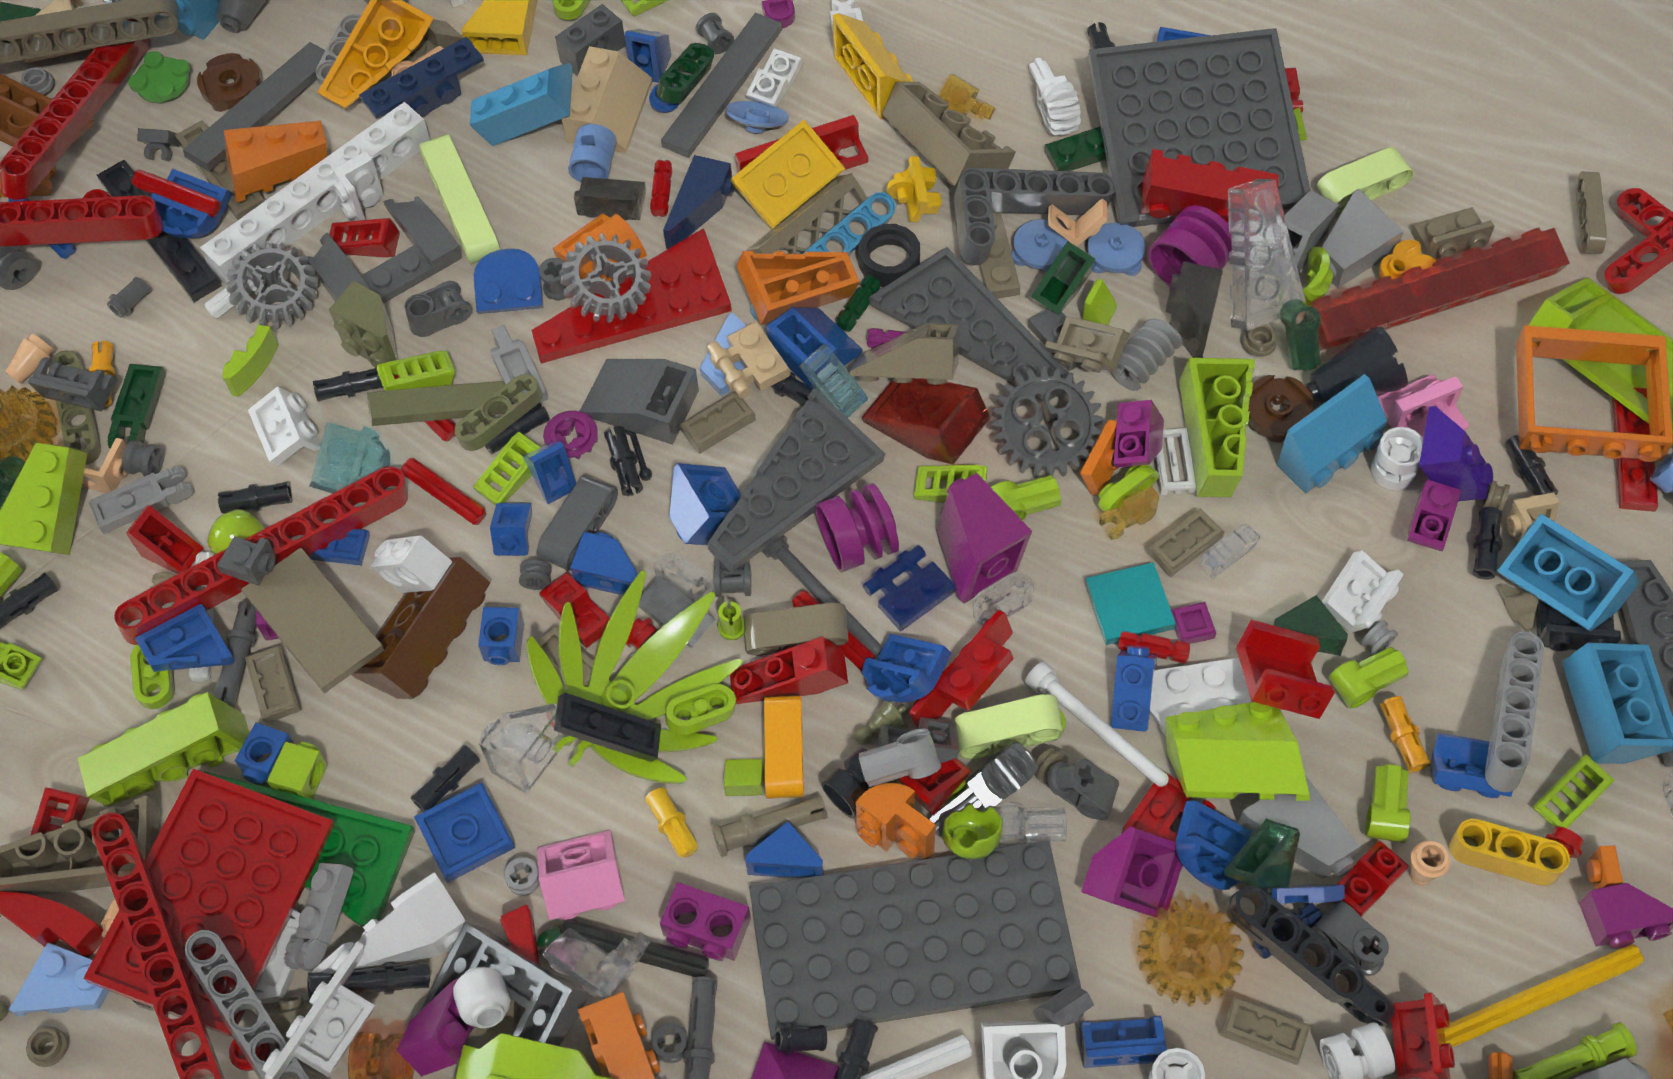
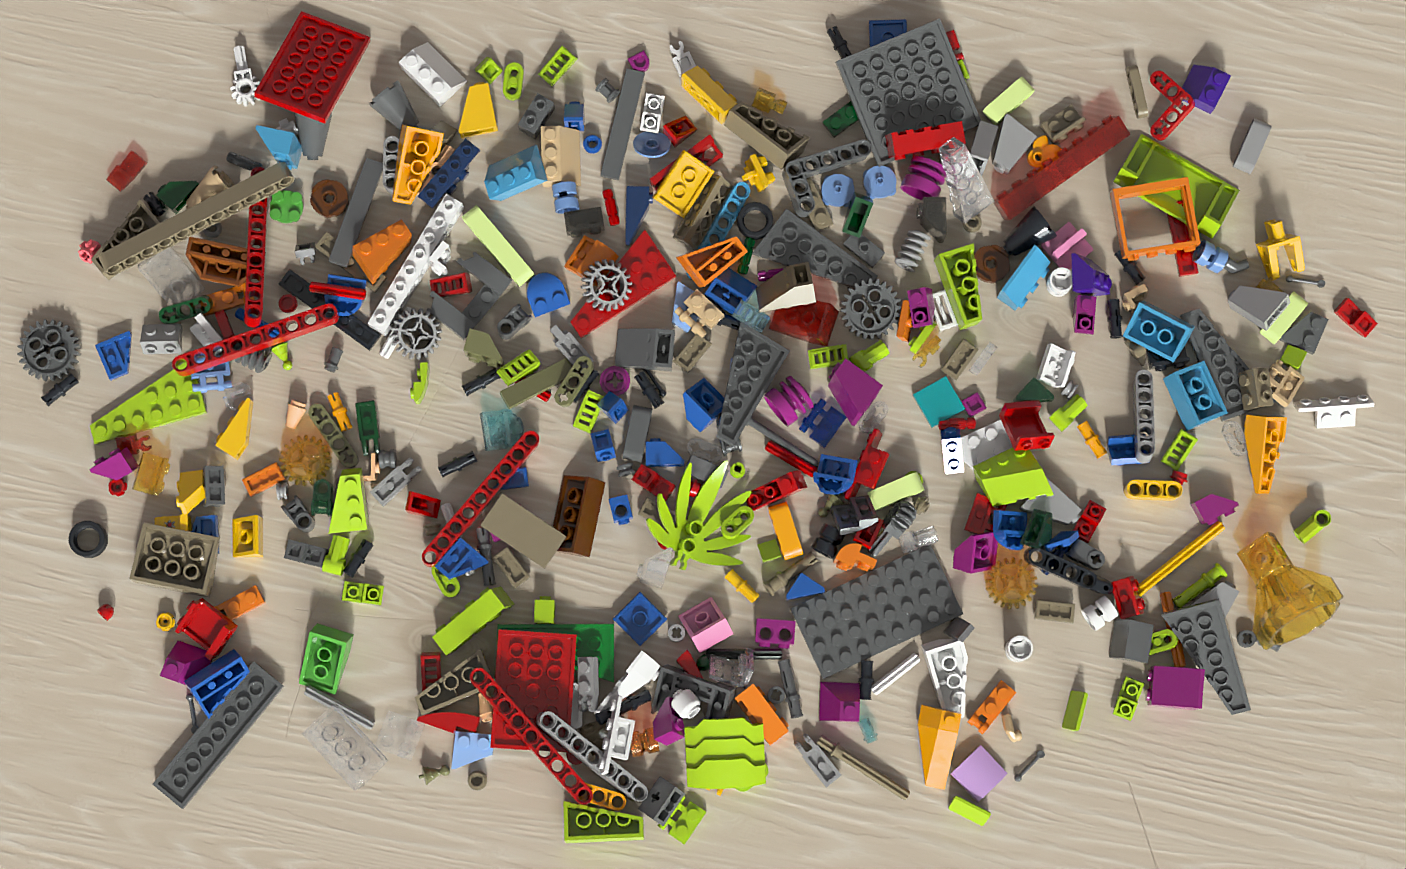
camera: 20 degrees left, 20 degrees up
(53, 265) = (281, 352): none -> lime piece
(72, 385) = (332, 426): dark grey hinge -> none
(231, 524) = (458, 490): lime hair -> none
(247, 560) = (479, 509): dark grey bracket -> none
(260, 742) = (521, 599): blue brick -> none
(283, 425) = (456, 417): white bracket -> none
(410, 564) = (562, 485): white brick -> none
(443, 491) = (558, 433): red axle -> none
(445, 779) = (619, 594): black pin -> none
(551, 274) = (574, 280): dark grey bush -> none
(607, 727) = (697, 549): black tile -> none
(684, 82) = (606, 120): dark green beam -> none
(785, 628) = (773, 466): dark tan beam -> none
(800, 1038) = (838, 676): black pin -> none
(806, 104) = (679, 130): none -> red slope
(910, 755) = (856, 529): light grey piece -> none
(972, 832) = (893, 553): lime hair -> none
(1044, 680) = (907, 459): white piece -> none
(1055, 100) = (820, 89): white gear -> none
(1084, 787) = (940, 513): dark grey piece -> none
(1085, 226) = (857, 175): light nougat bracket -> none
(1088, 343) = (882, 257): dark tan bracket -> none
(1099, 304) = (880, 224): lime slope -> none
(1122, 1042) = (989, 634): blue hinge -> none
(1301, 337) = (995, 219): clear green piece -> none
(1319, 274) = (996, 177): lime hat -> none
(1387, 813) = (1092, 486): lime piece -> none
(1428, 862) = (1119, 505): light nougat cone -> none
(1496, 496) = (1115, 290): dark tan bush -> none
(1604, 867) = (1199, 487): orange plate -> none

